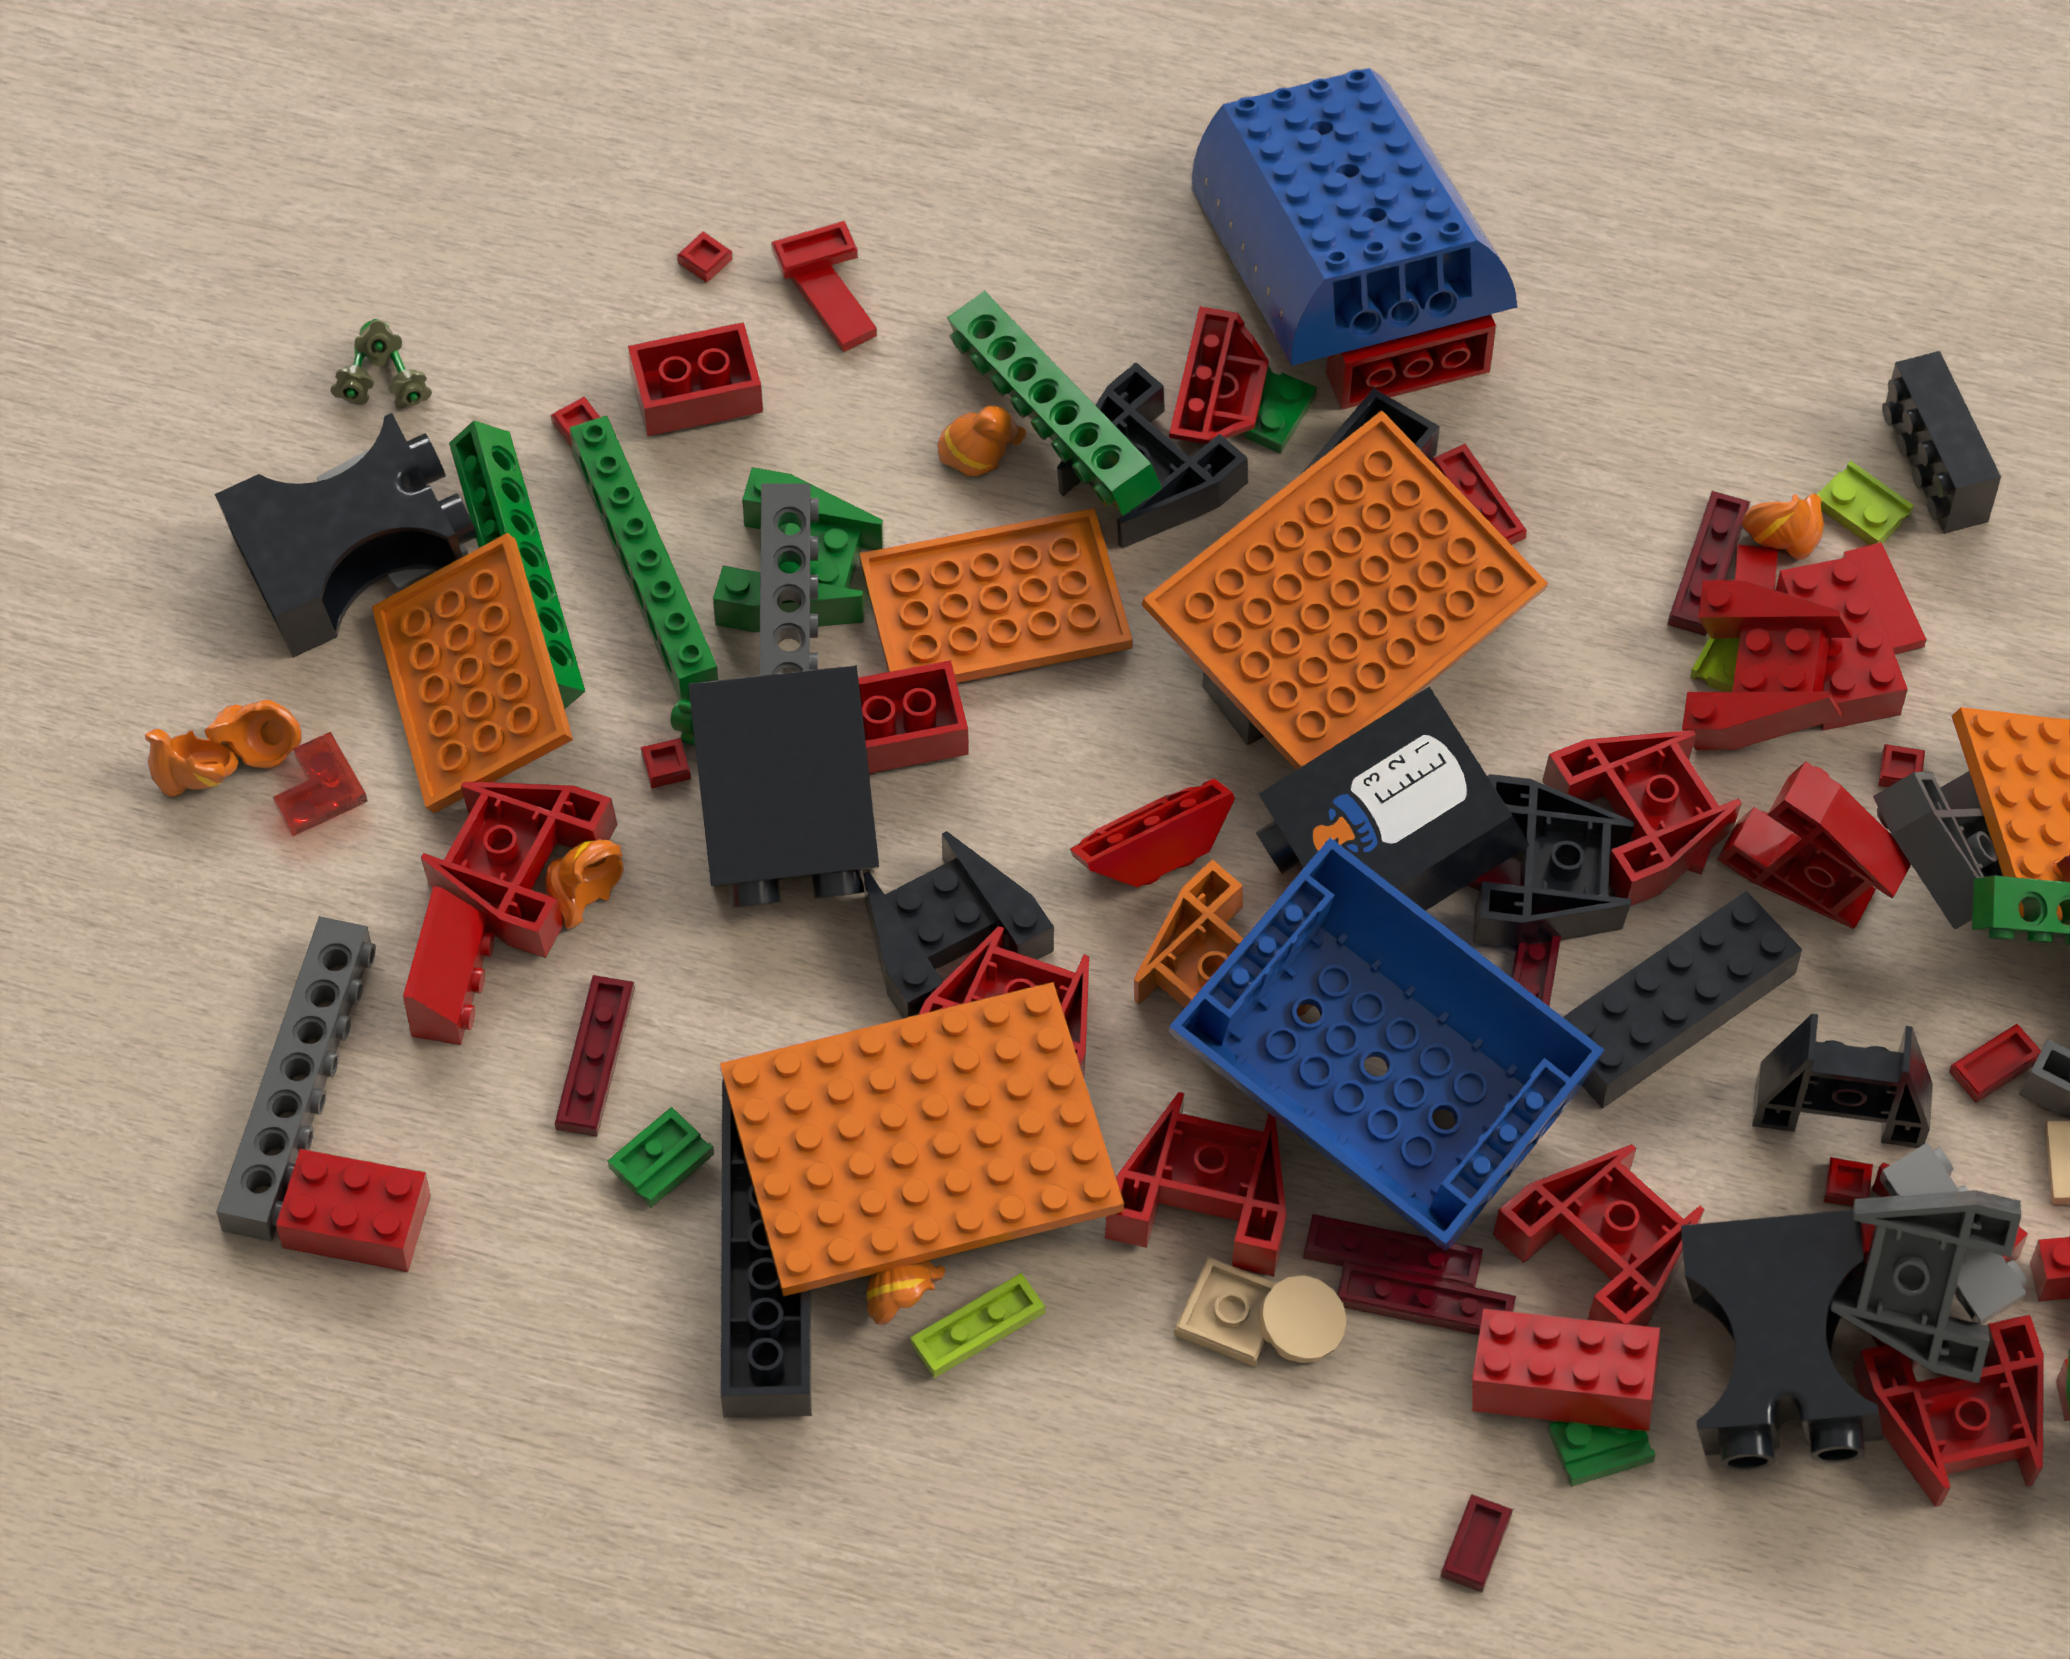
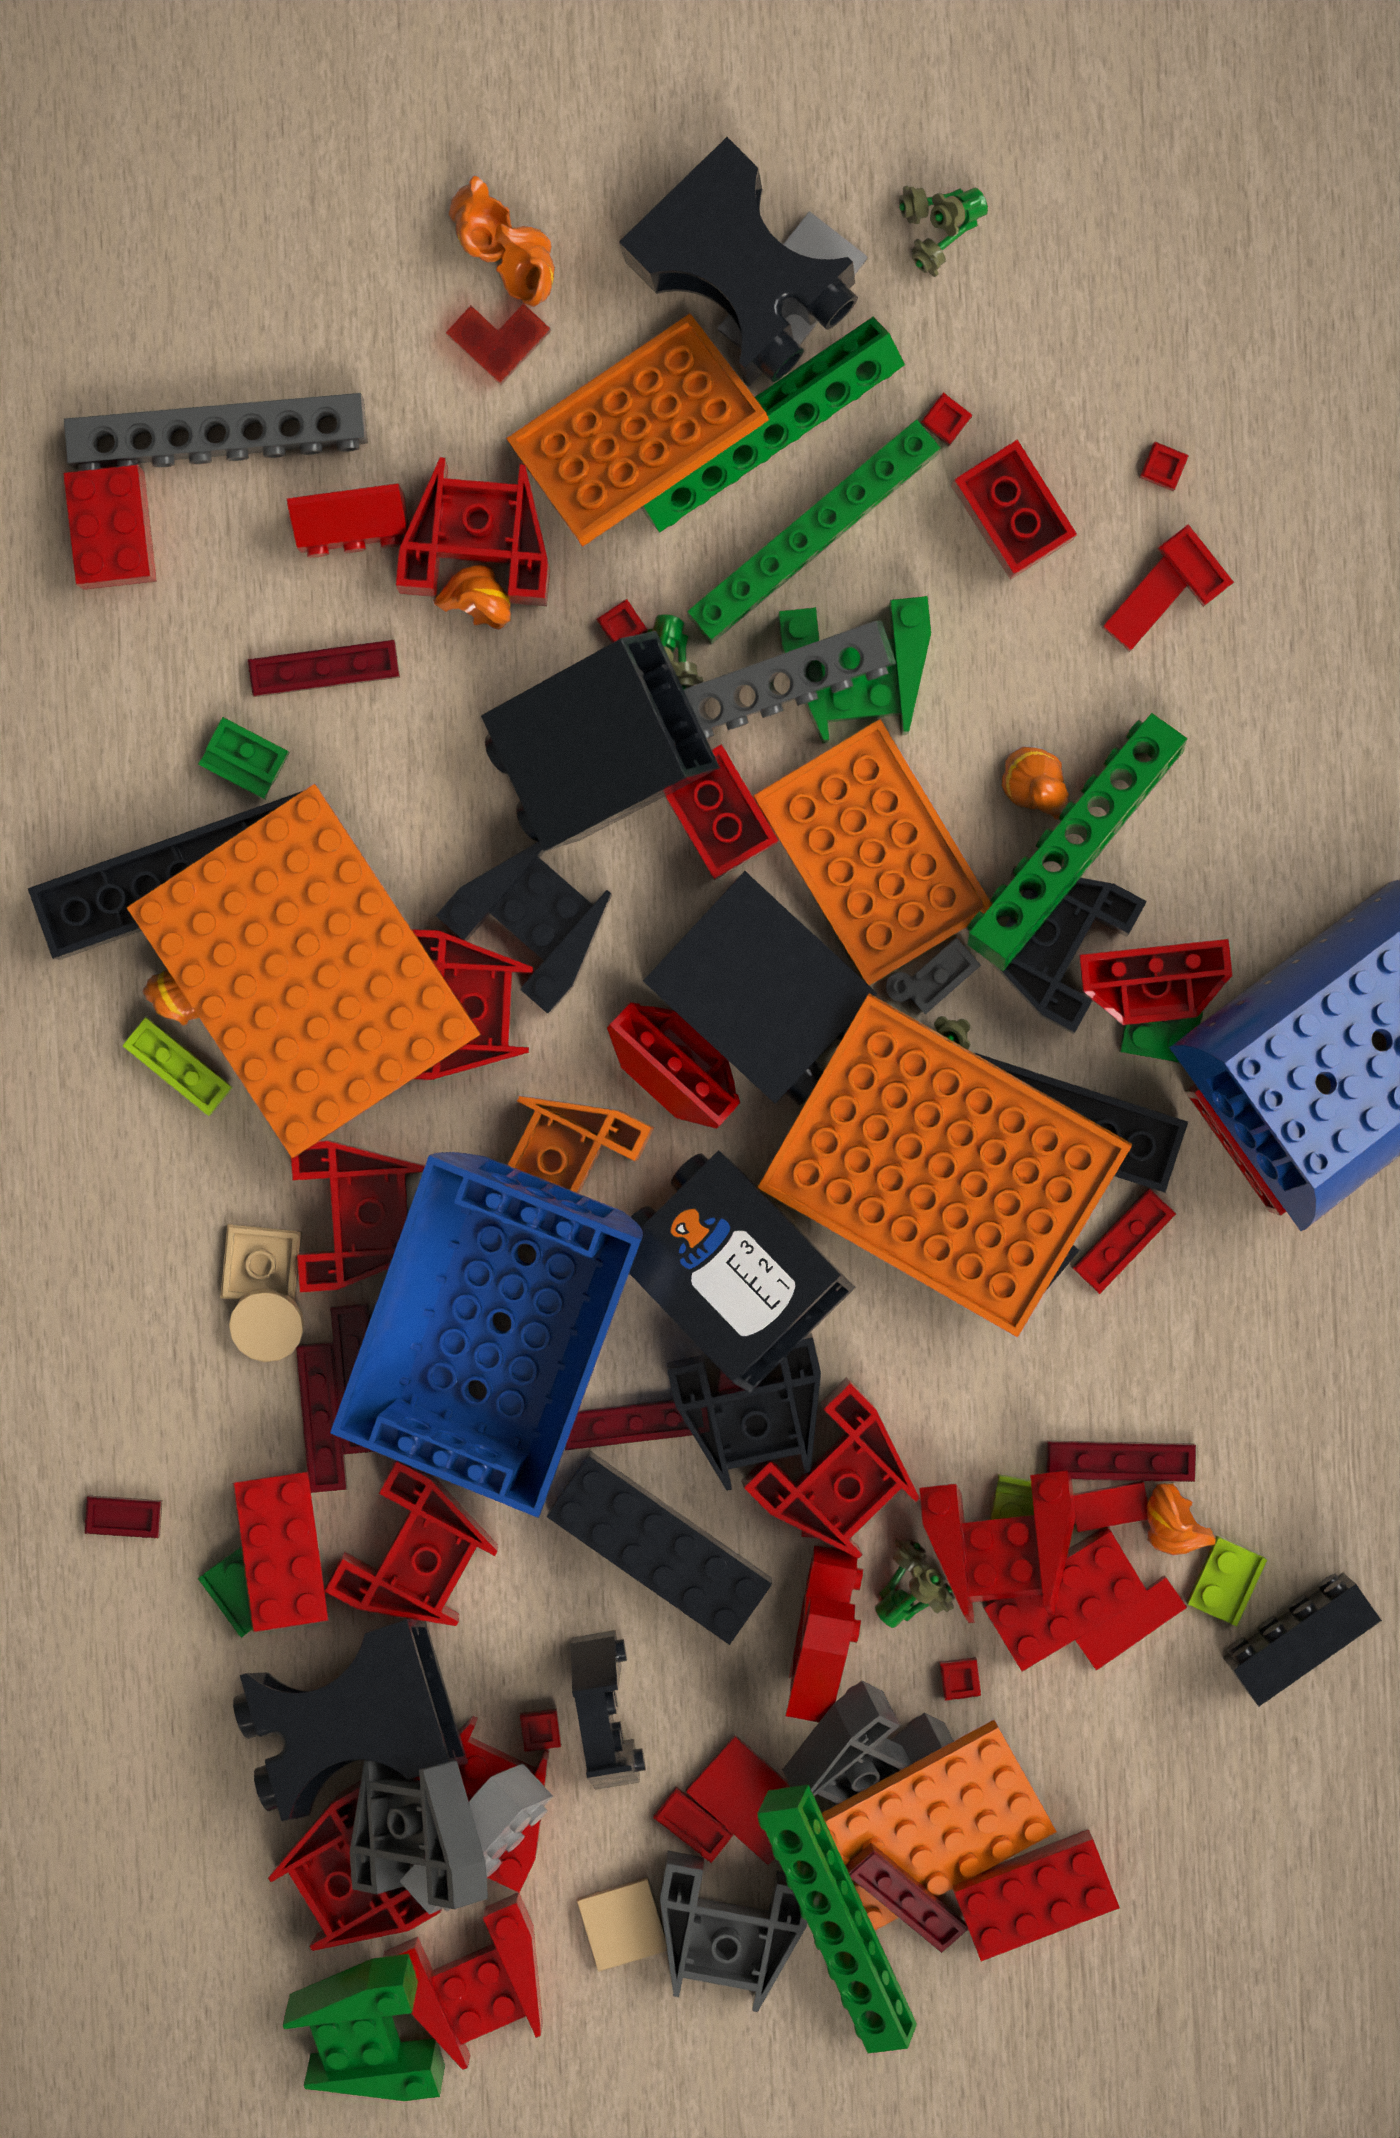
camera: 75 degrees right, 30 degrees up
(1101, 726) = (761, 990): none -> black brick
(1141, 573) = (935, 978): none -> dark grey hinge
(1787, 738) = (925, 1587): none -> plant
(1982, 998) = (734, 1790): none -> red tile

